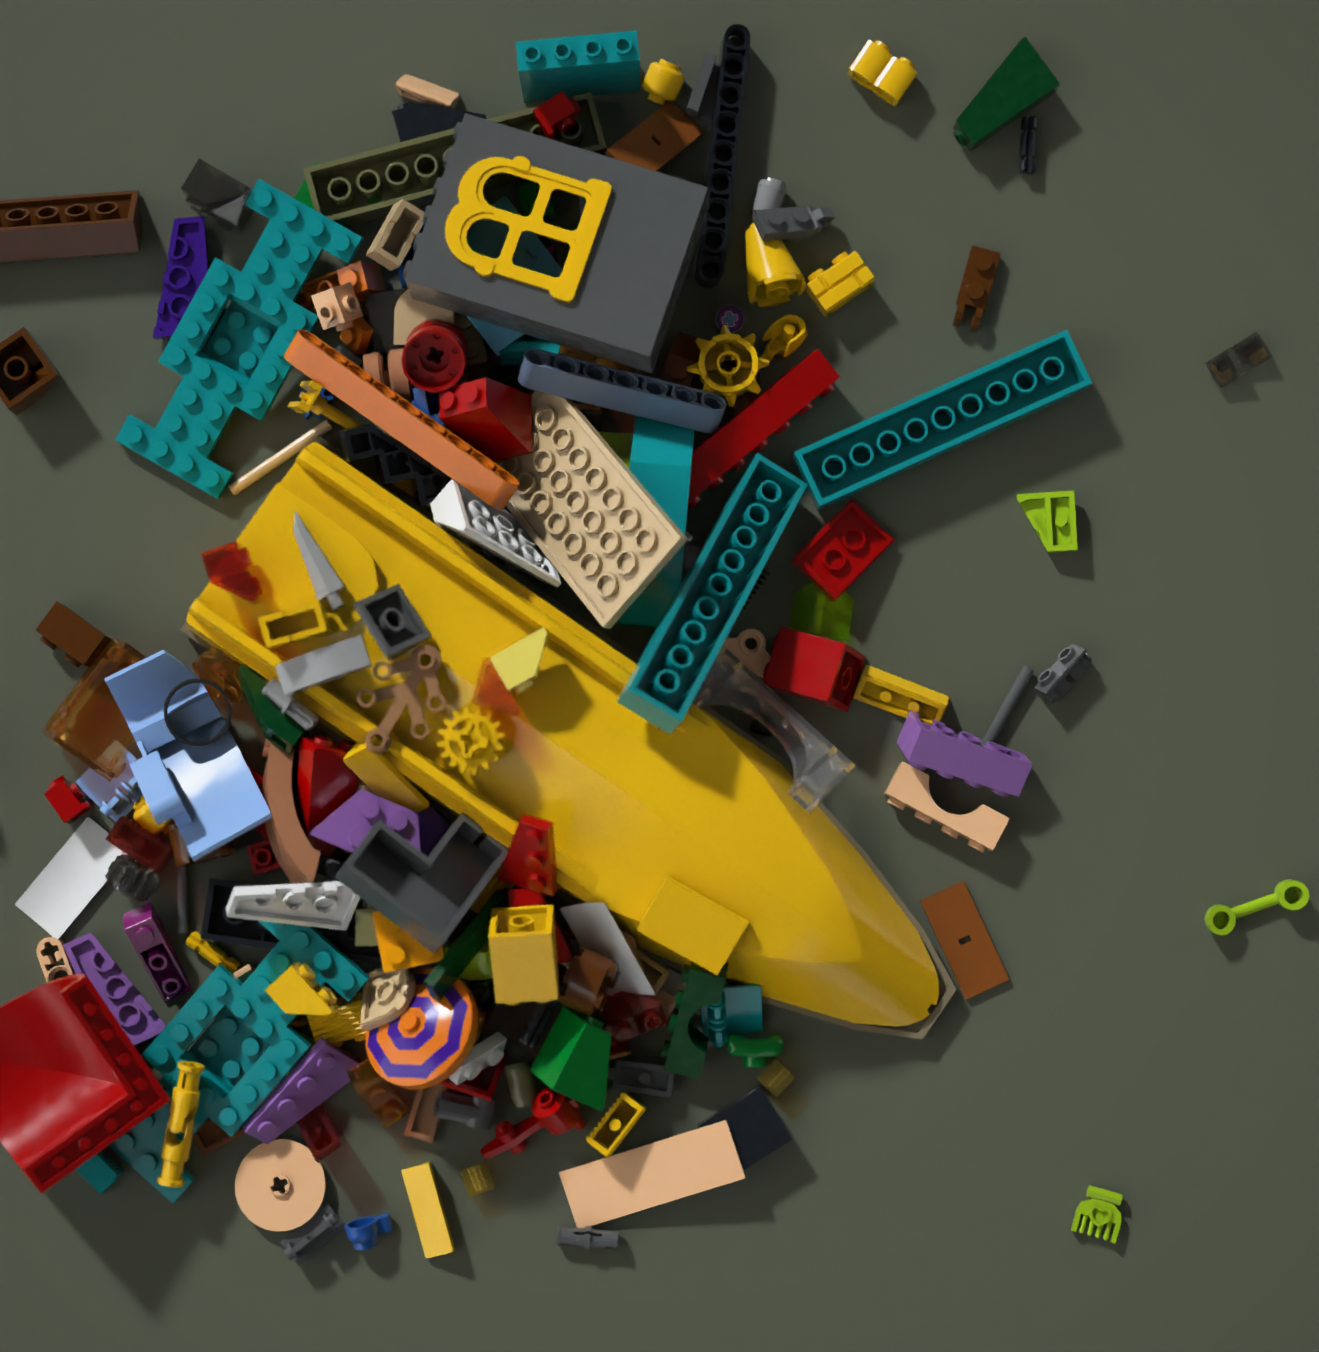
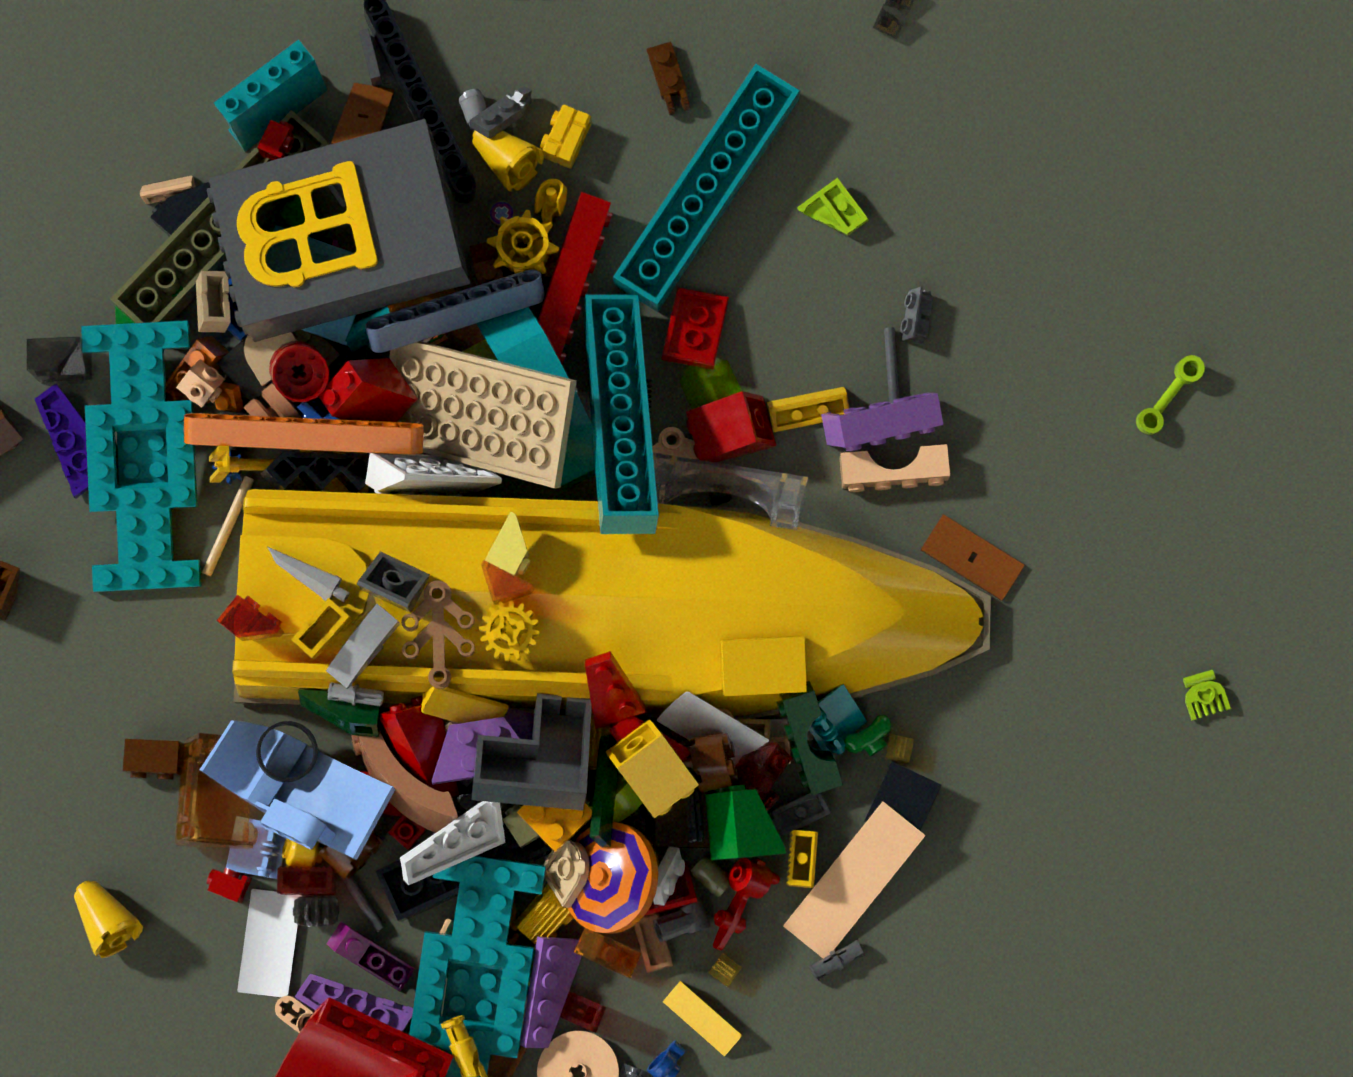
camera: 30 degrees left, 5 degrees down
(212, 952) = (410, 930): yellow axle -> none
(218, 669) = (280, 709): clear orange plate -> none
(300, 993) = (499, 909): yellow slope -> none
(663, 81) = (340, 71): yellow head -> none

